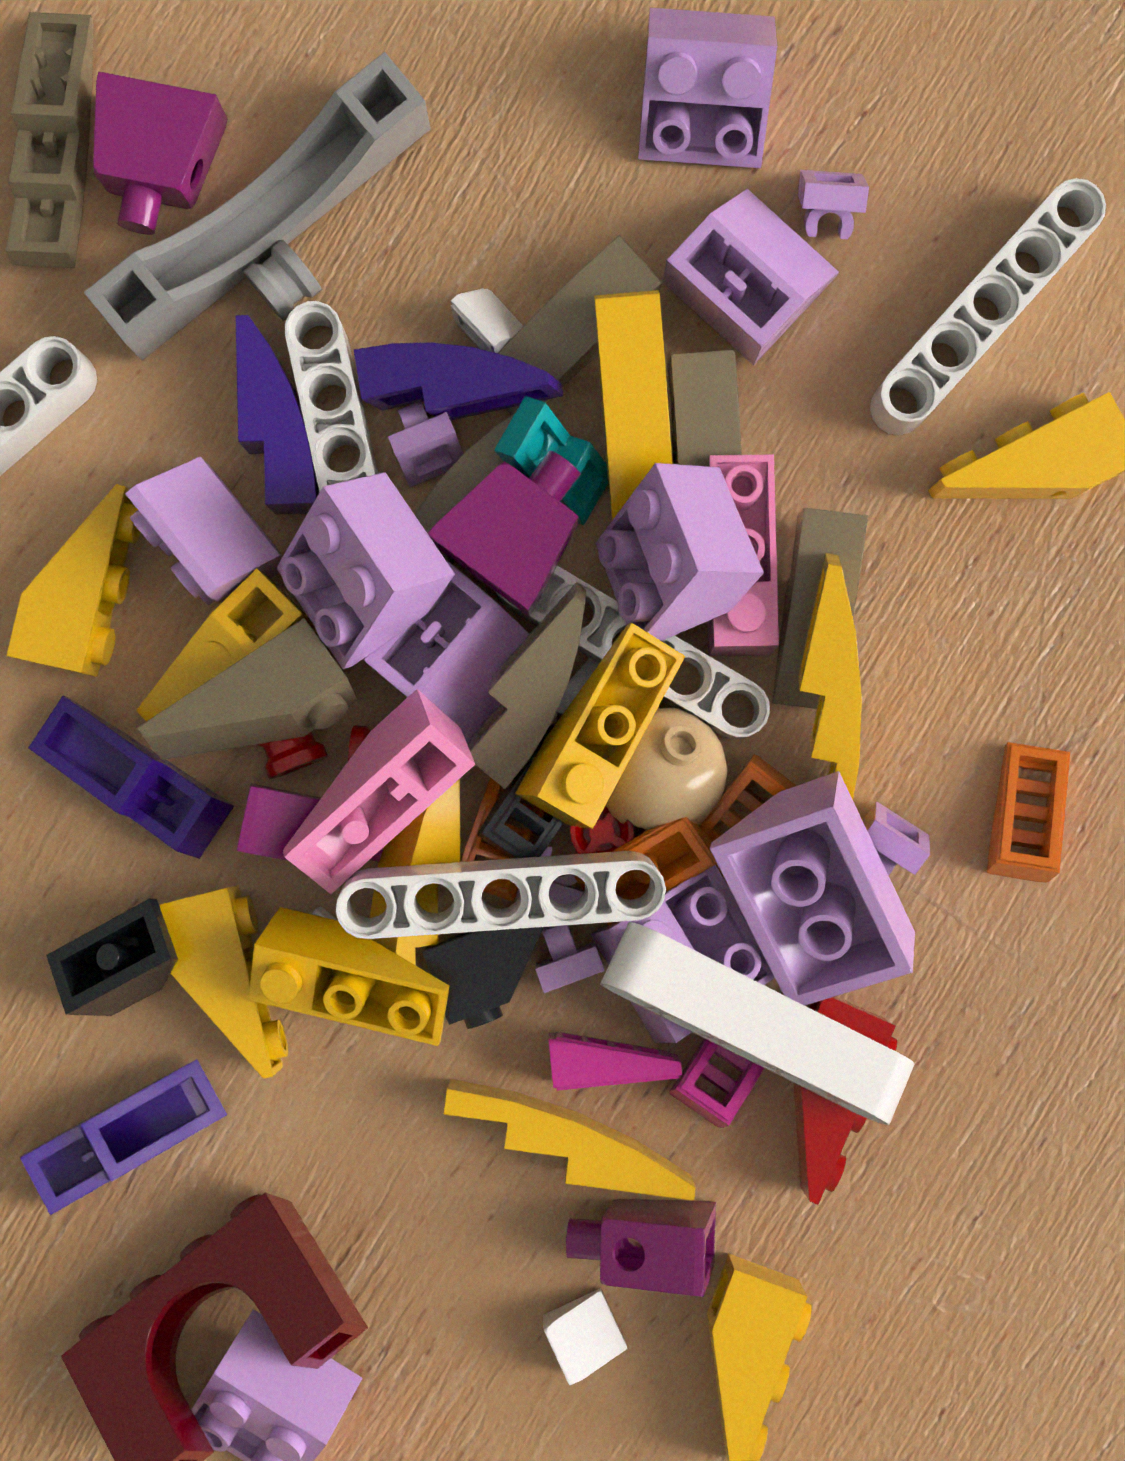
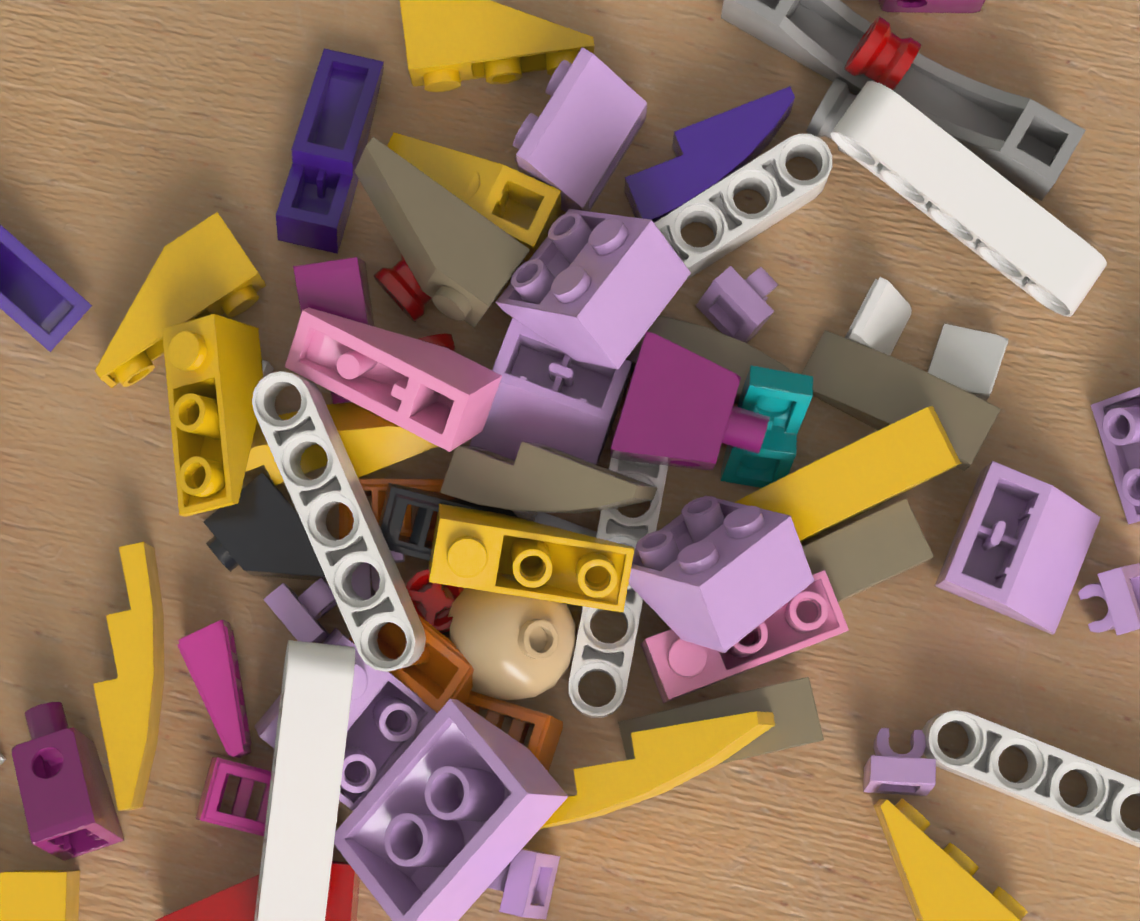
camera: 75 degrees right, 5 degrees down
(115, 963) = (153, 197): black slope -> none
(240, 216) = (882, 55): none -> red wheel
(405, 190) = (968, 198): none -> white beam
(448, 379) = (805, 301): dark purple slope -> none
(556, 252) = (968, 359): none -> white slope
(915, 460) = (899, 772): none -> lavender tile

